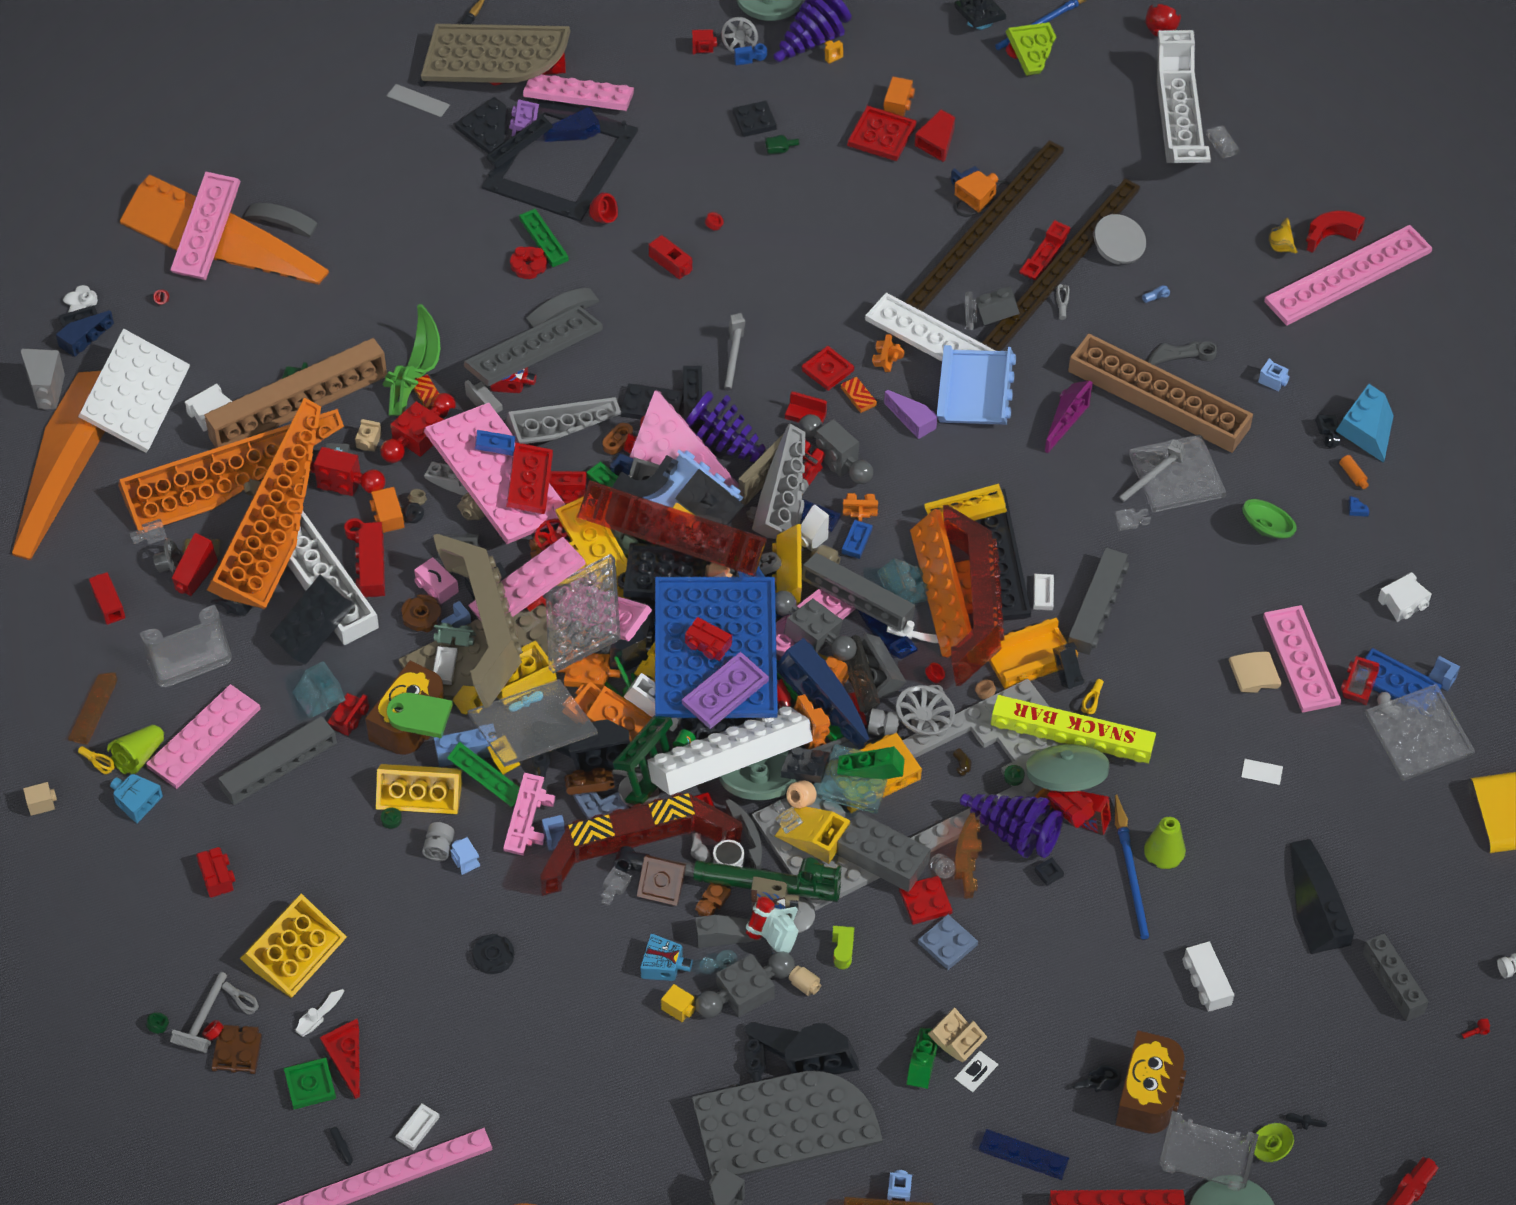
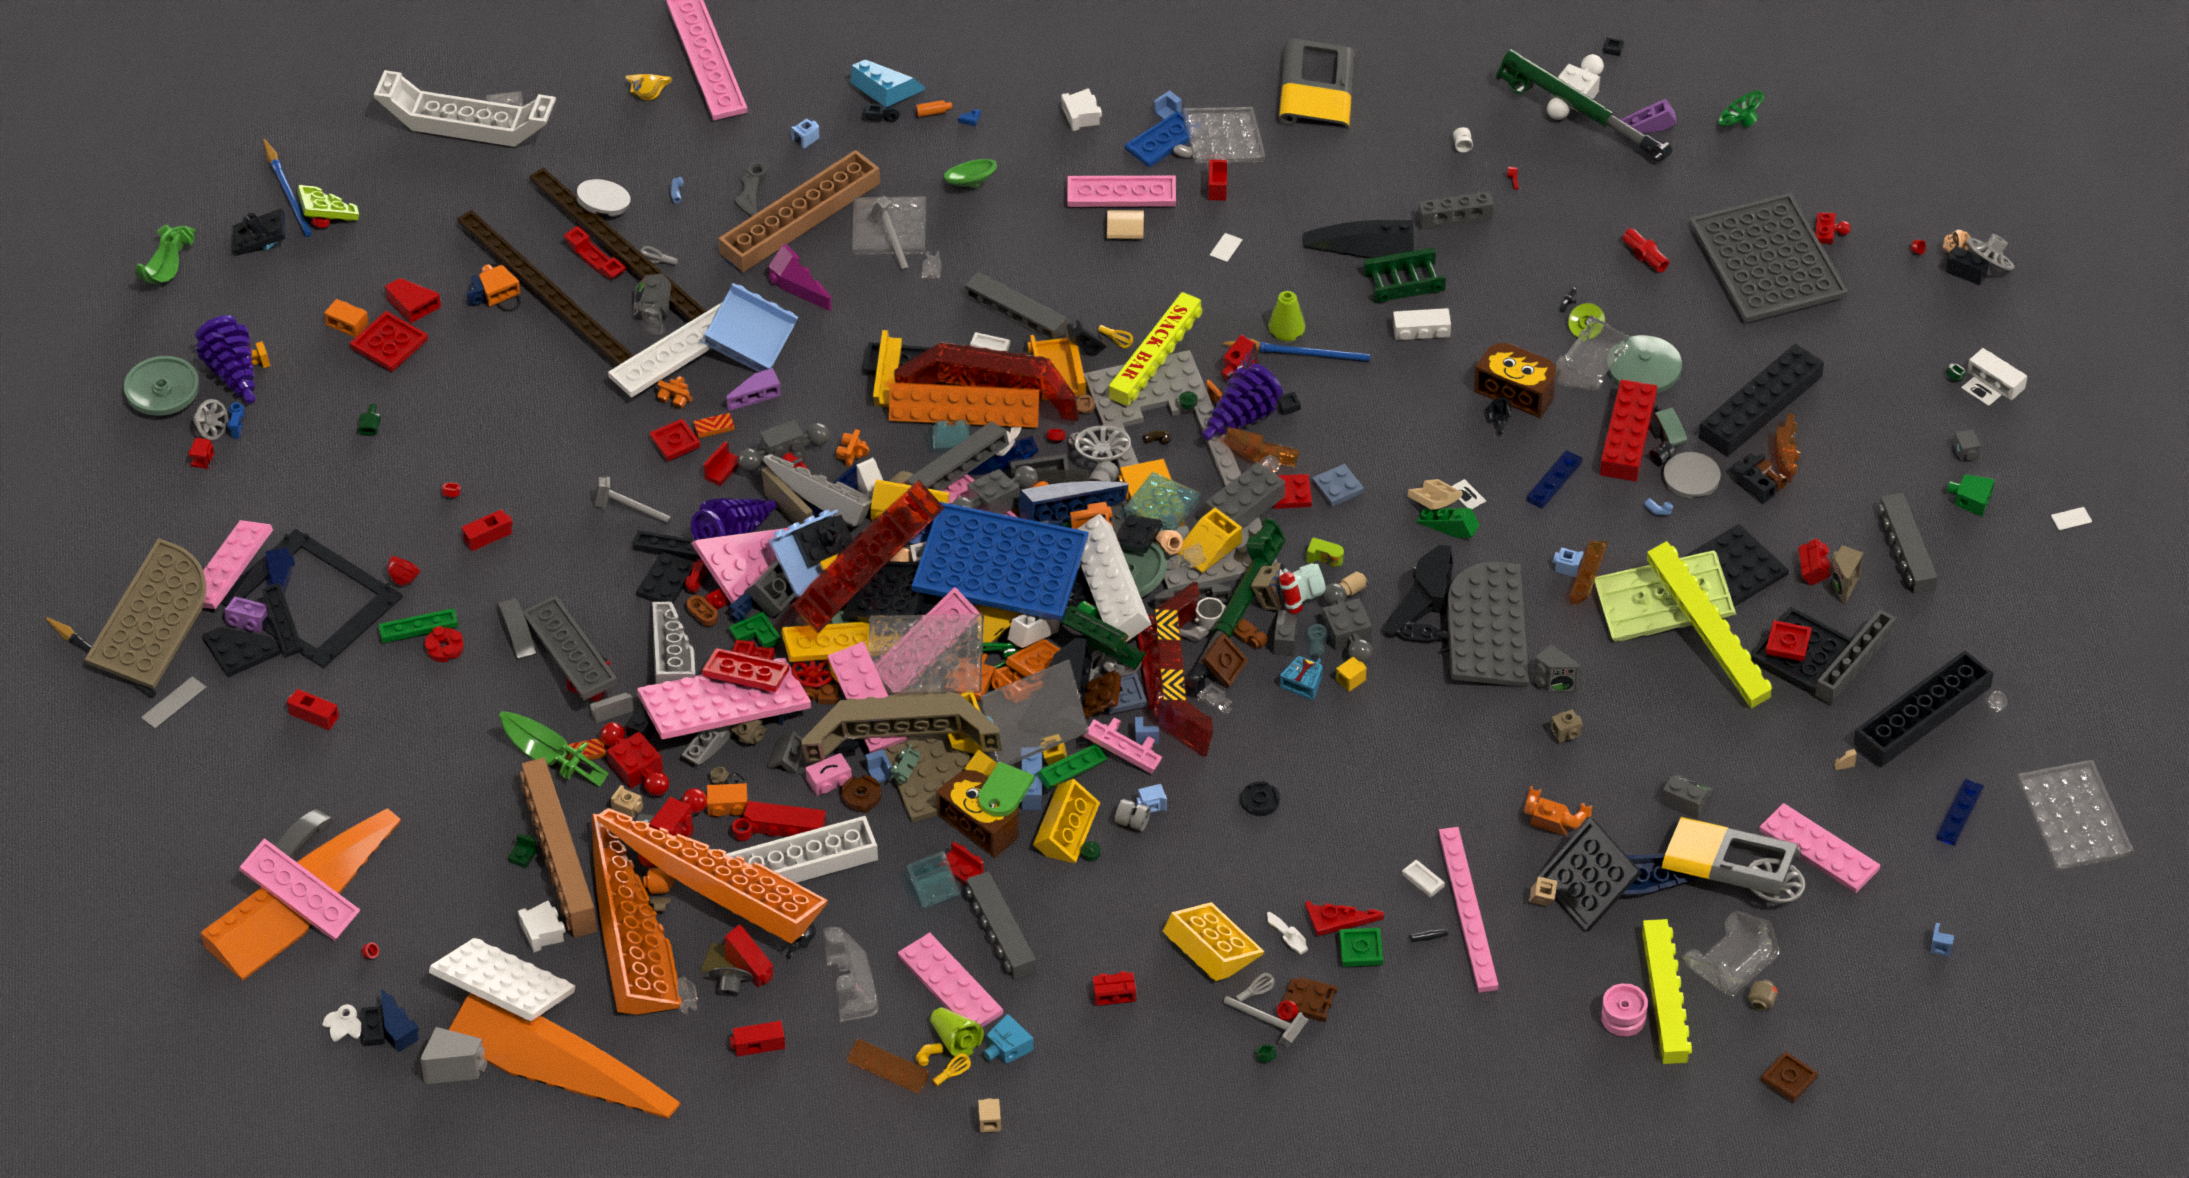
camera: 75 degrees left, 5 degrees down
(111, 732) = (923, 1055): none -> yellow arm
(312, 619) = (857, 863): black brick -> none
(425, 190) = (313, 709): none -> red brick
(445, 663) = (931, 778): white tile -> none
(494, 442) = (697, 685): blue plate -> none
(651, 487) = (793, 579): black arch -> none
(708, 639) = (999, 557): red brick -> none
(725, 690) = (1057, 558): medium lavender plate -> none
(754, 118) = (323, 435): black plate -> none
(857, 539) = (888, 458): blue plate -> none
(875, 764) = (1160, 480): green slope -> none
(1067, 767) = (1201, 355): sand green dish -> none
(1072, 805) = (1241, 357): red brick -> none
(1161, 19) = (337, 103): red cylinder -> none
(1287, 929) = (1401, 262): none -> dark green fence
(1334, 223) = (644, 44): red arch -> none
(1350, 740) = (1217, 180): none -> red panel
(1360, 680) = (1159, 157): red window -> none

